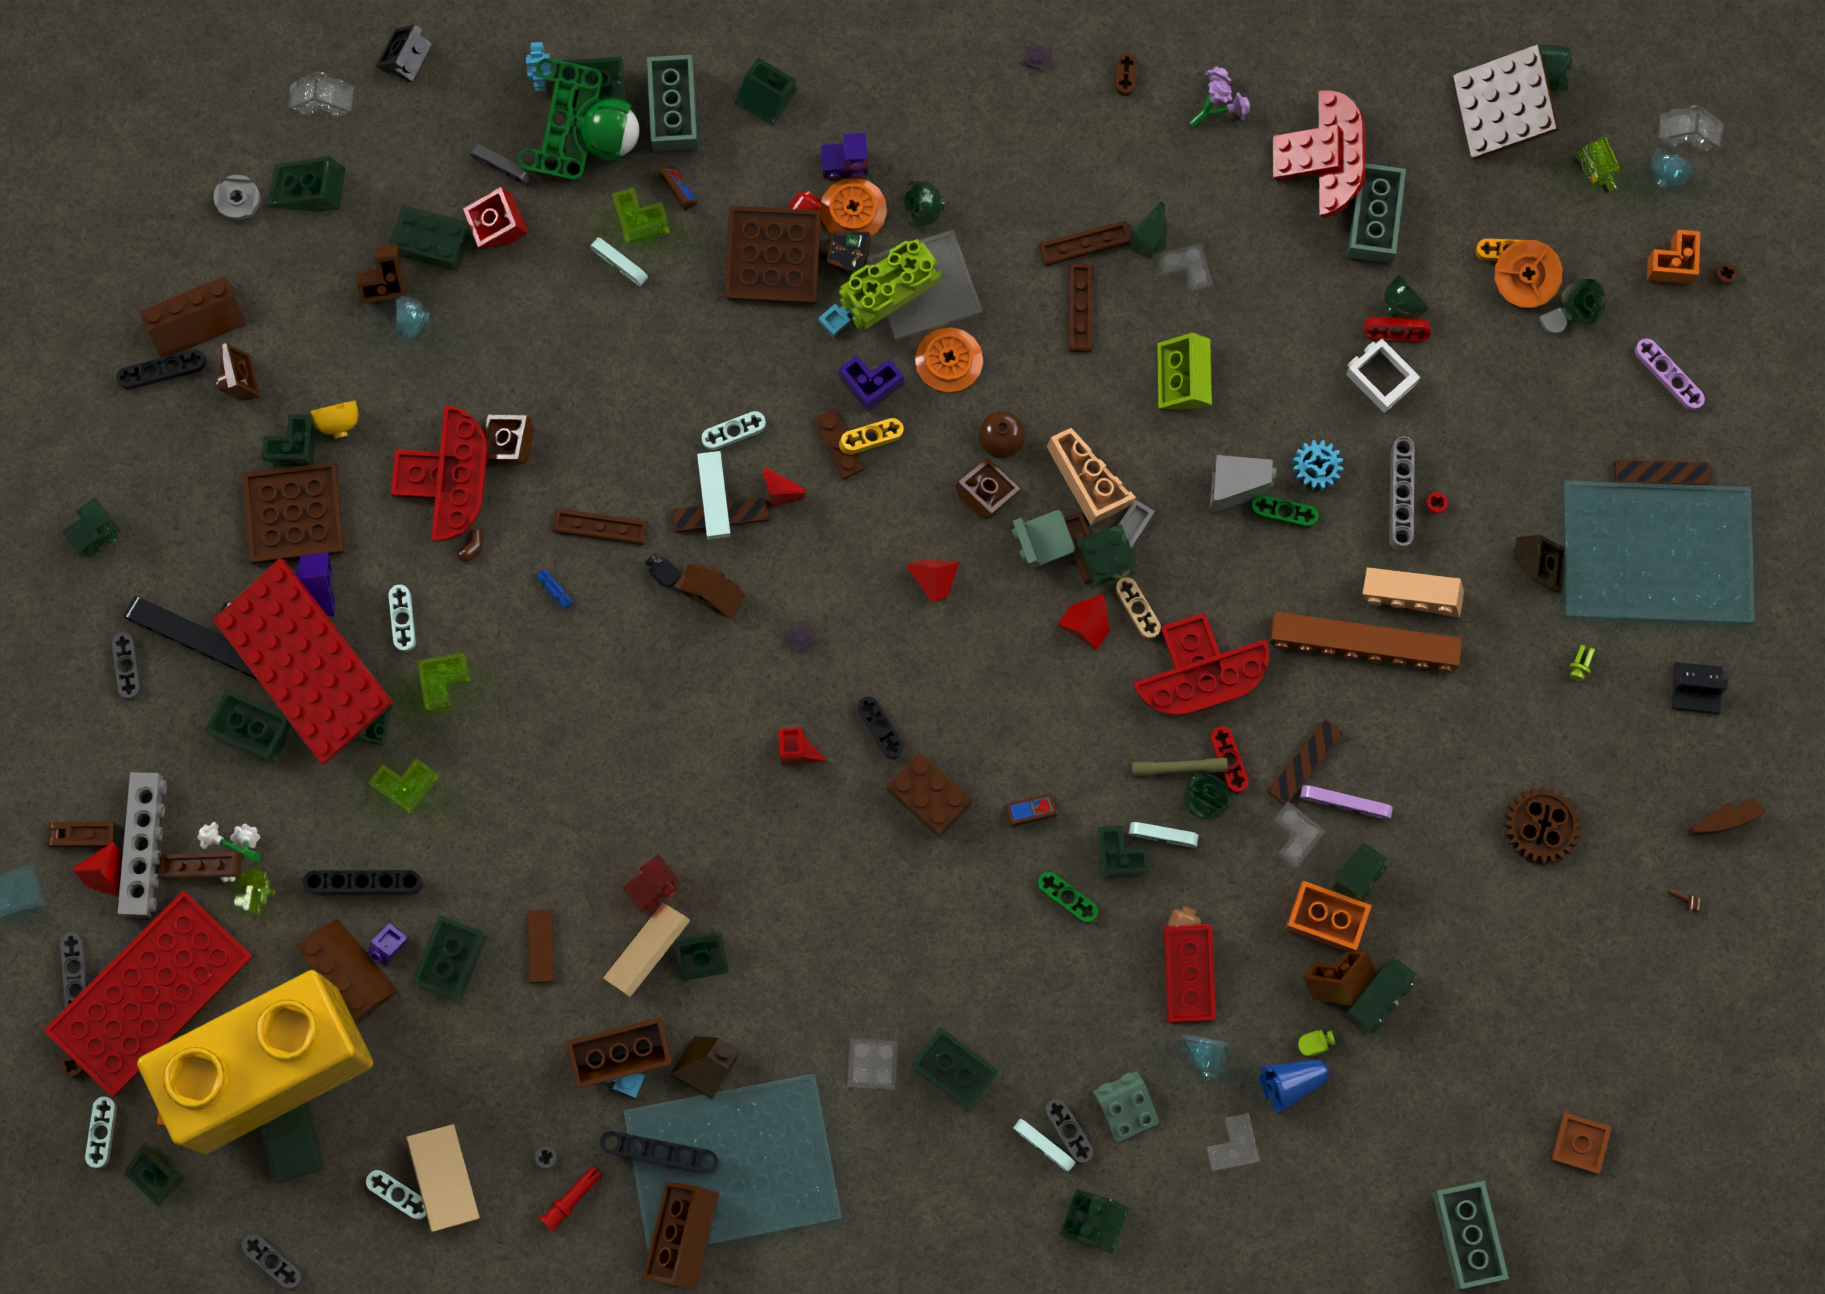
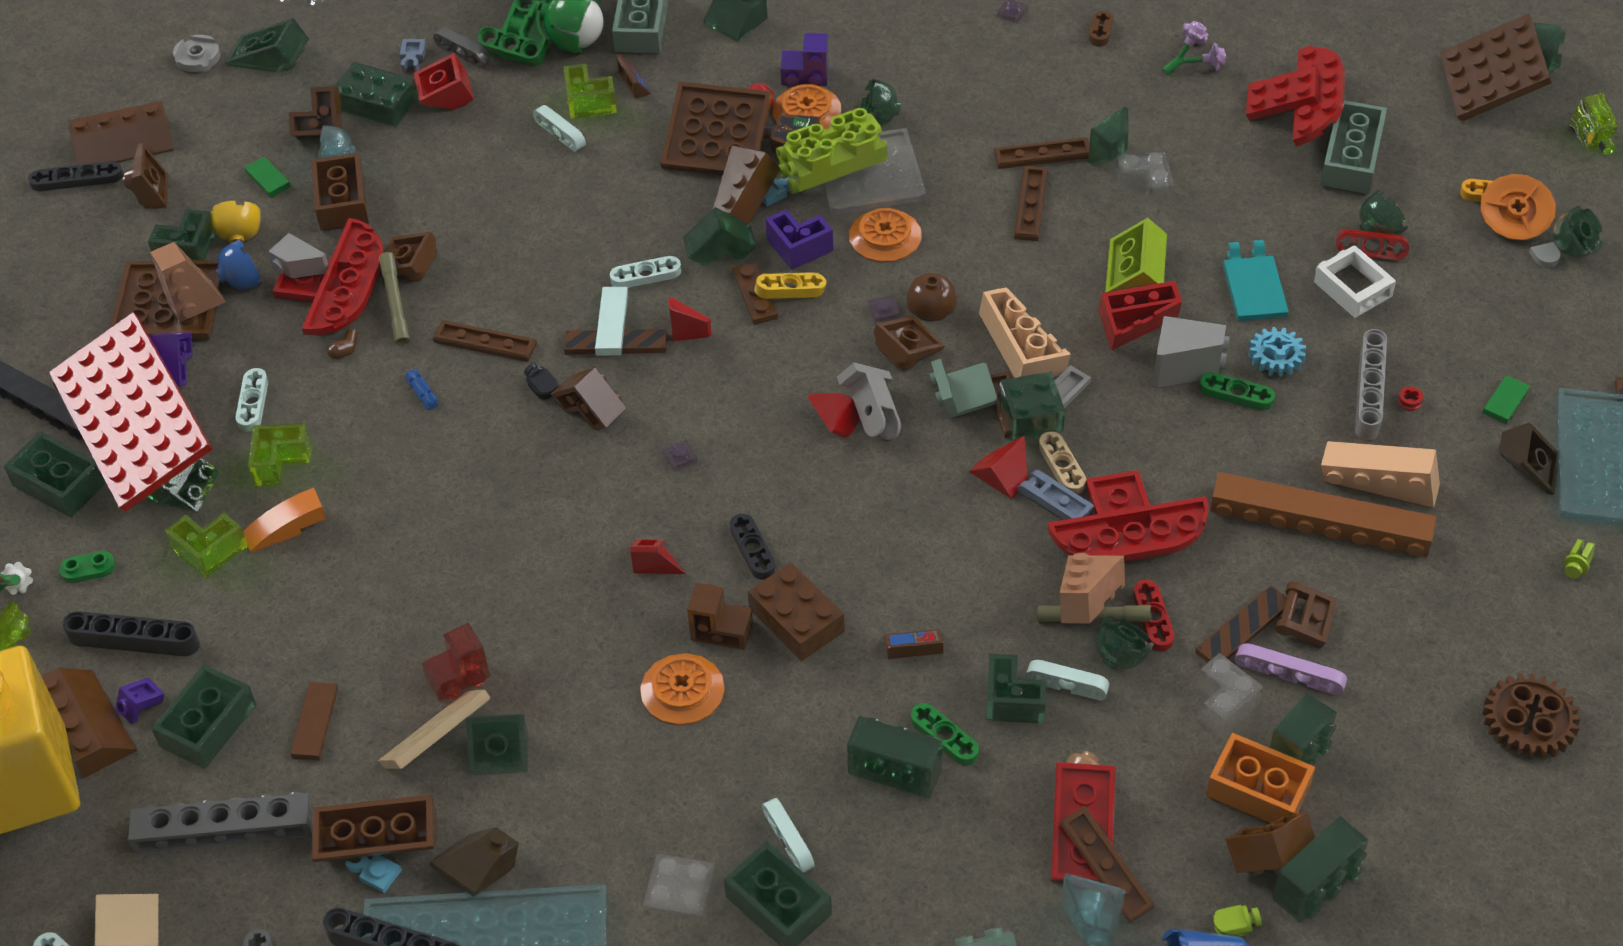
camera: 10 degrees right, 25 degrees down
(302, 815) = (87, 567): none -> green plate
(316, 510) = (184, 283): none -> nougat wedge
(348, 350) = (267, 177): none -> green tile
(352, 474) = (237, 268): none -> blue cylinder
(407, 460) = (297, 258): none -> light grey slope
(426, 368) = (339, 190): none -> reddish brown brick
(426, 1061) = (147, 835): none -> dark grey brick
(452, 175) = (411, 52): none -> sand blue plate
(465, 751) = (284, 520): none -> orange slope
(498, 467) = (389, 273): none -> olive piece
(797, 389) = (718, 234): none -> clear green brick
(811, 326) = (745, 182): none -> reddish brown wedge
(849, 894) = (682, 704): none -> orange piece
(866, 813) = (715, 621): none -> reddish brown brick
(954, 1009) = (787, 832): none -> light aqua beam
(959, 450) = (883, 309): none -> plate
(965, 566) = (871, 399): none -> light grey piece
(1032, 931) = (894, 756): none -> clear green brick
(1136, 648) = (1055, 496): none -> sand blue plate
(1173, 746) = (1088, 584): none -> nougat wedge
(1189, 436) = (1137, 311): none -> red wedge
(1211, 1007) = (1106, 862): none -> reddish brown tile
(1292, 385) = (1254, 284): none -> teal tile
(1364, 746) = (1315, 615): none -> reddish brown plate
(1519, 494) = (1506, 399): none -> green tile

